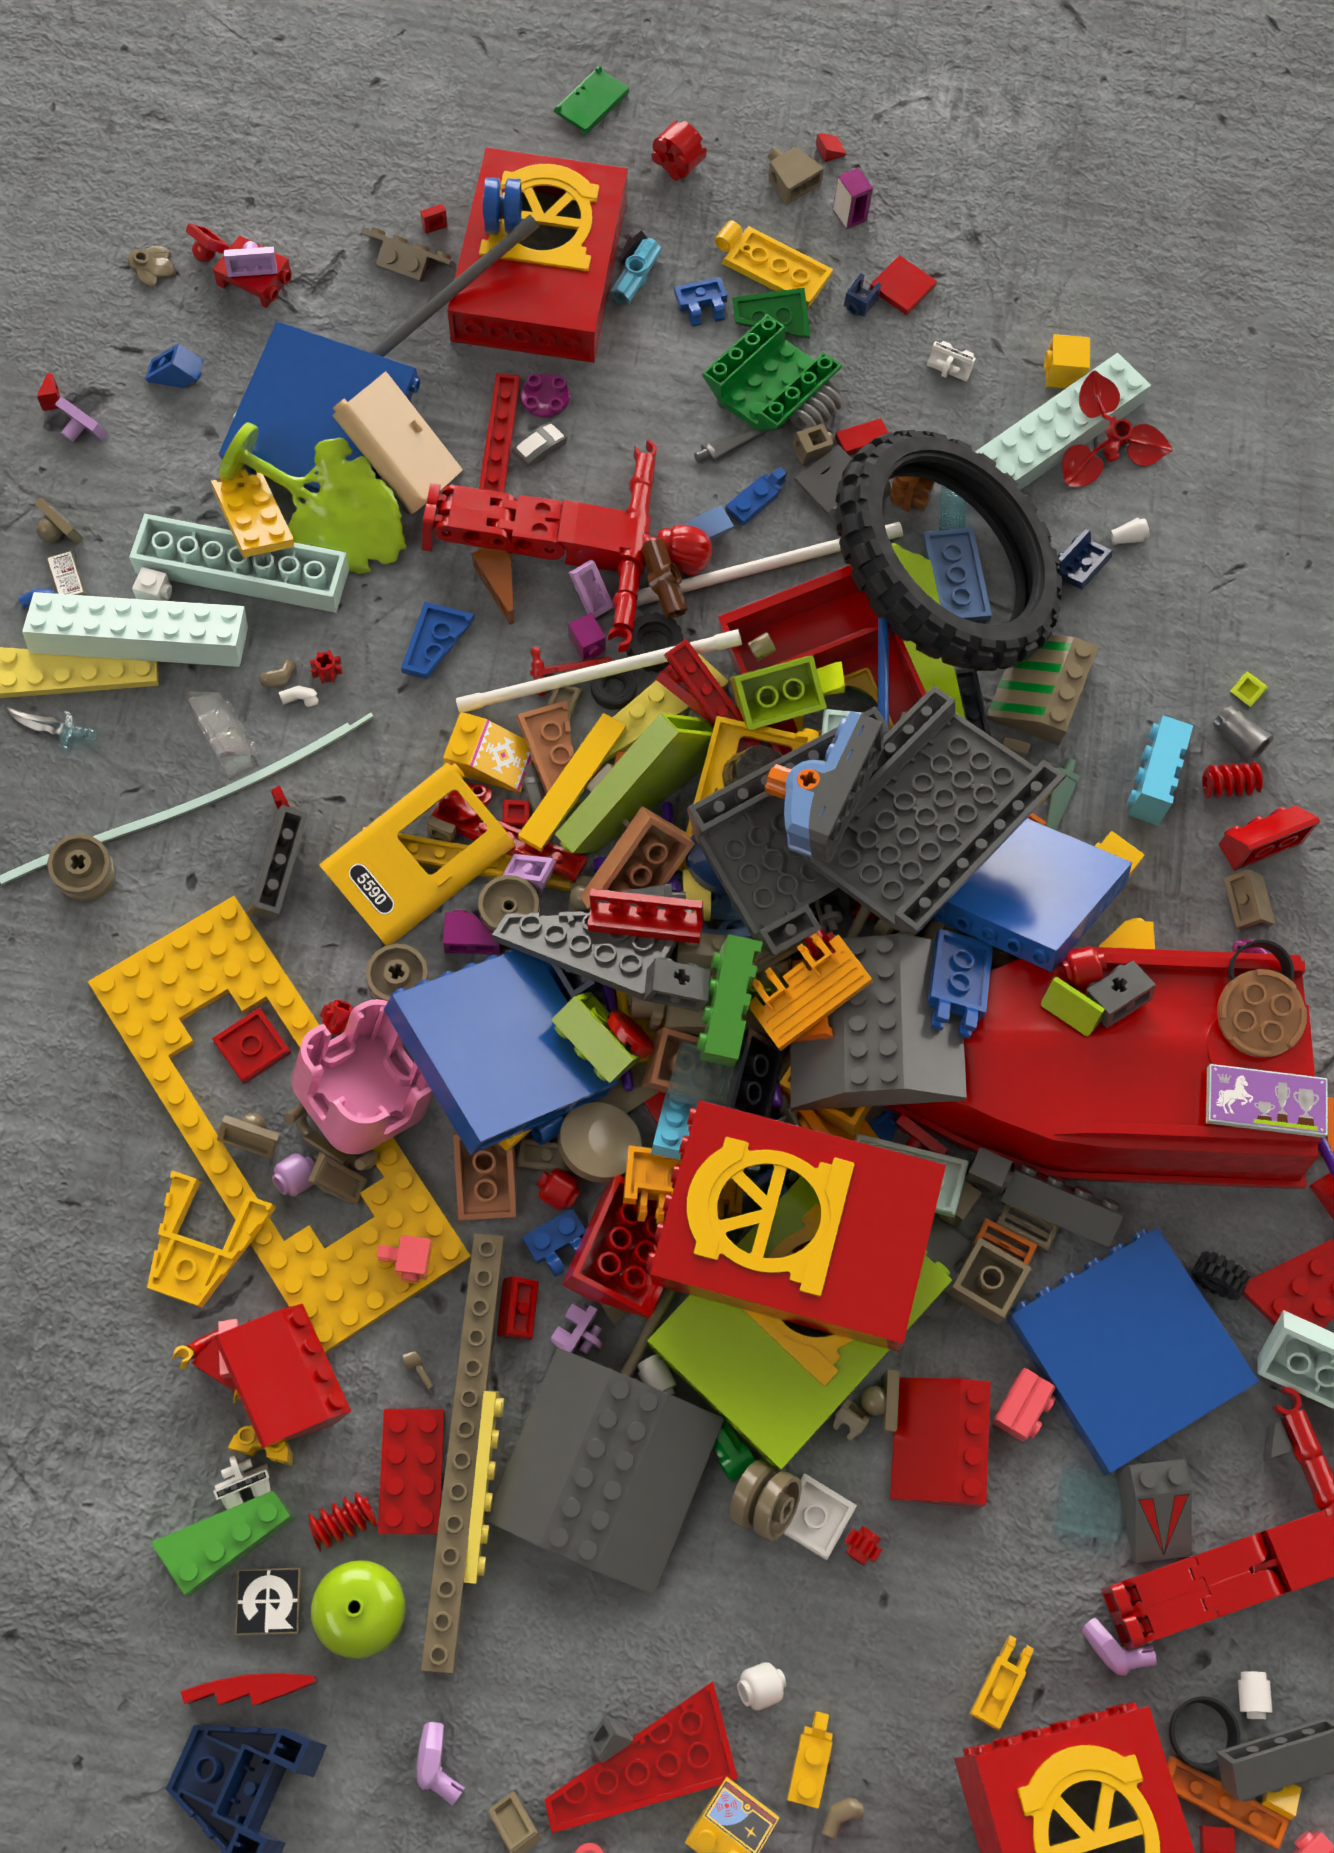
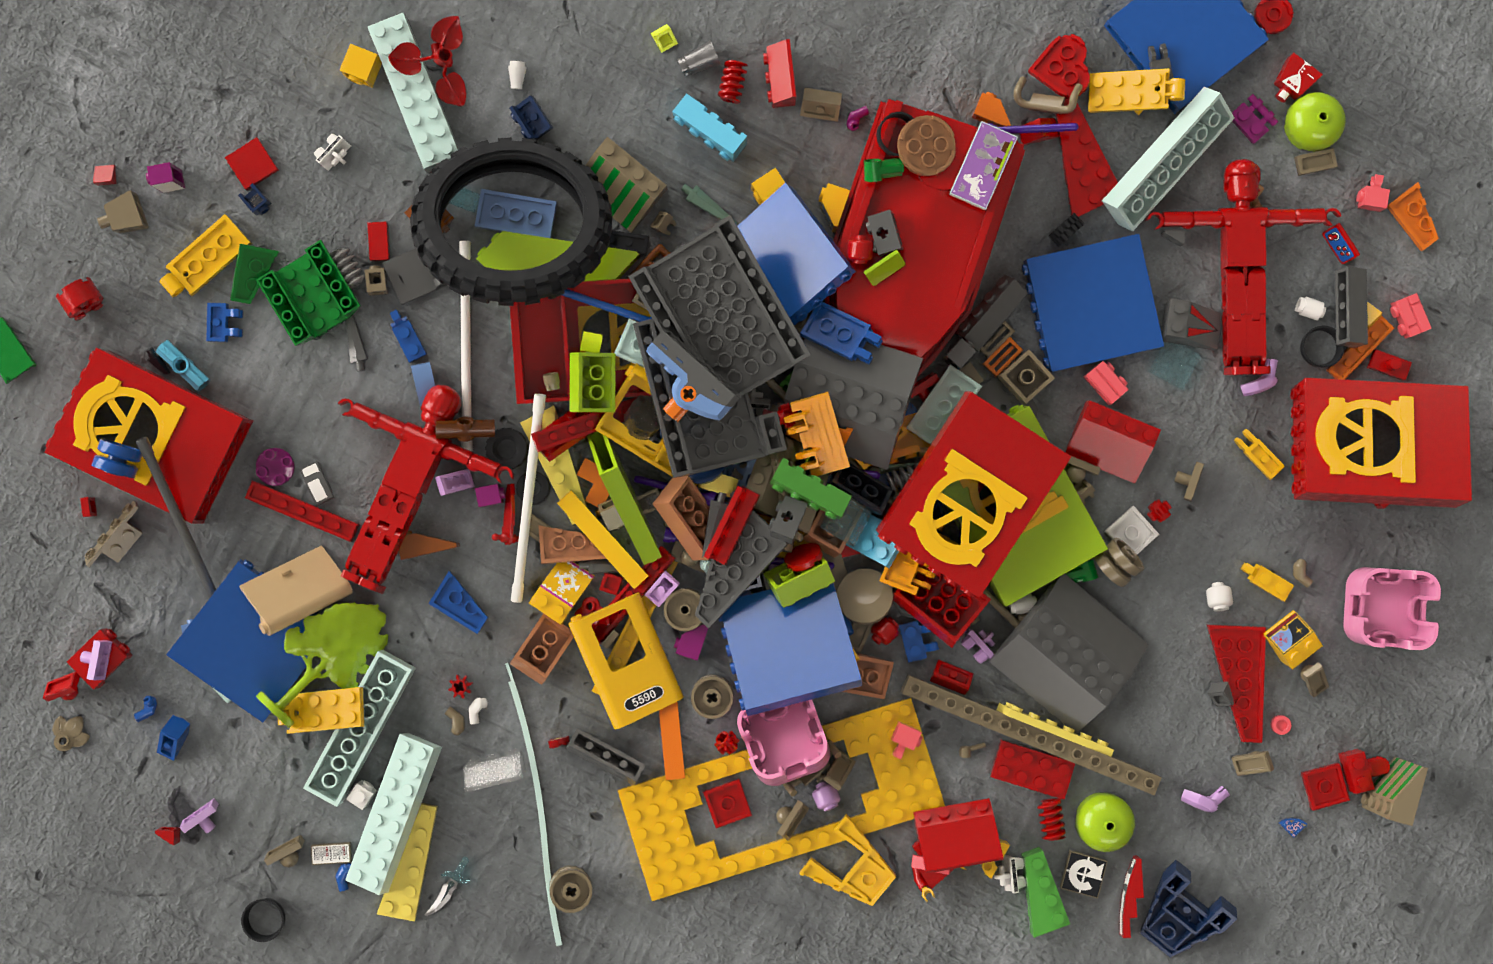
camera: 70 degrees left, 20 degrees up
(210, 337) = (149, 708): none -> blue arm
(319, 945) = (672, 742): none -> orange tile
(401, 749) = (542, 649): none -> nougat slope
(923, 1584) = (1190, 480): none -> dark tan tile
(1202, 958) = (877, 169): none -> green piece

